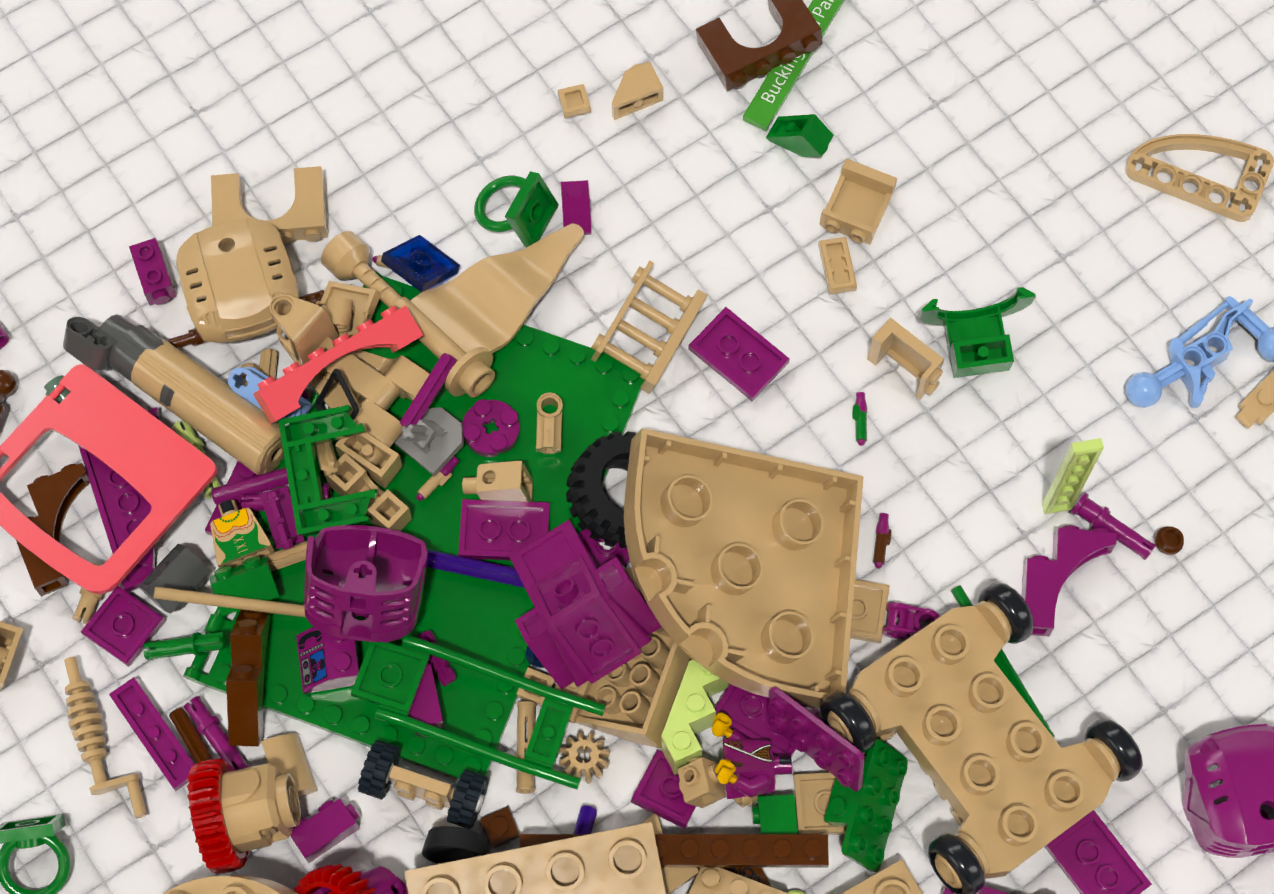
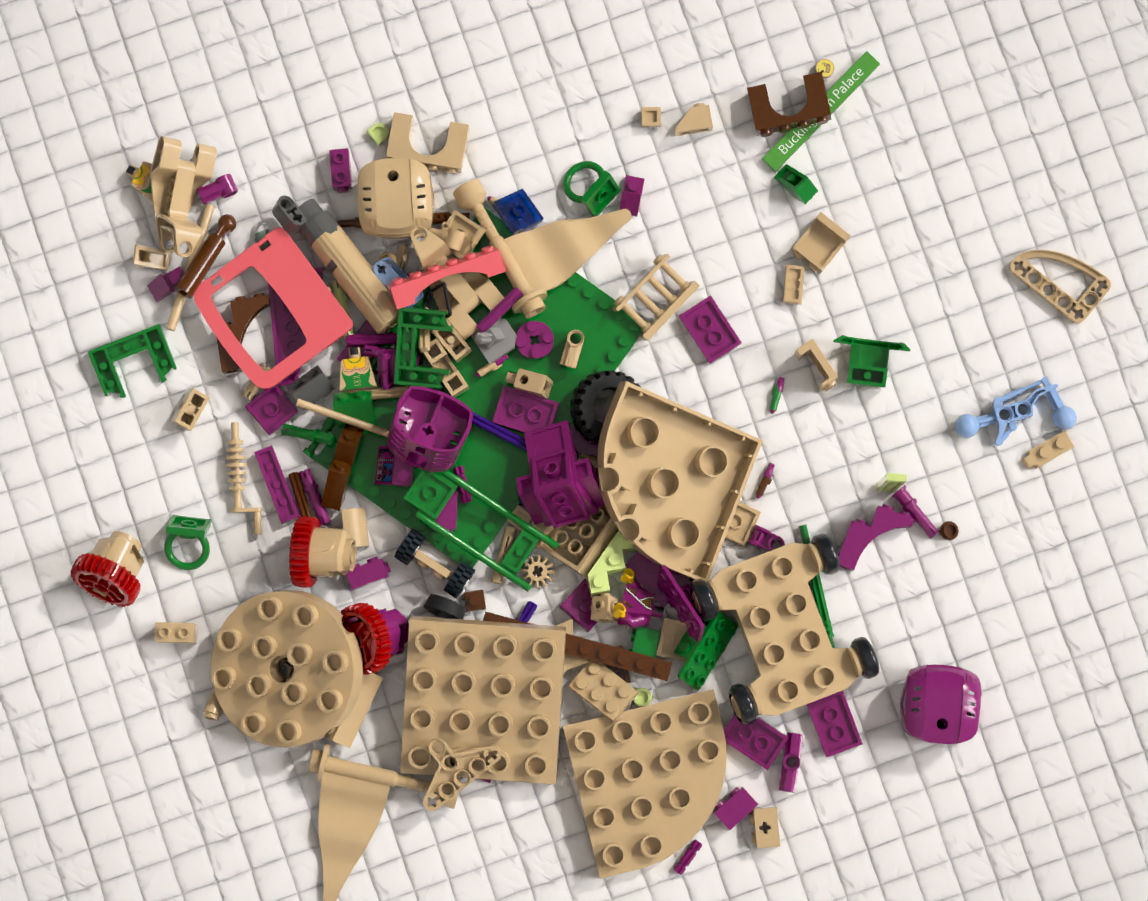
camera: 20 degrees right, 15 degrees up
(196, 214) = (379, 133): none -> yellowish green tile

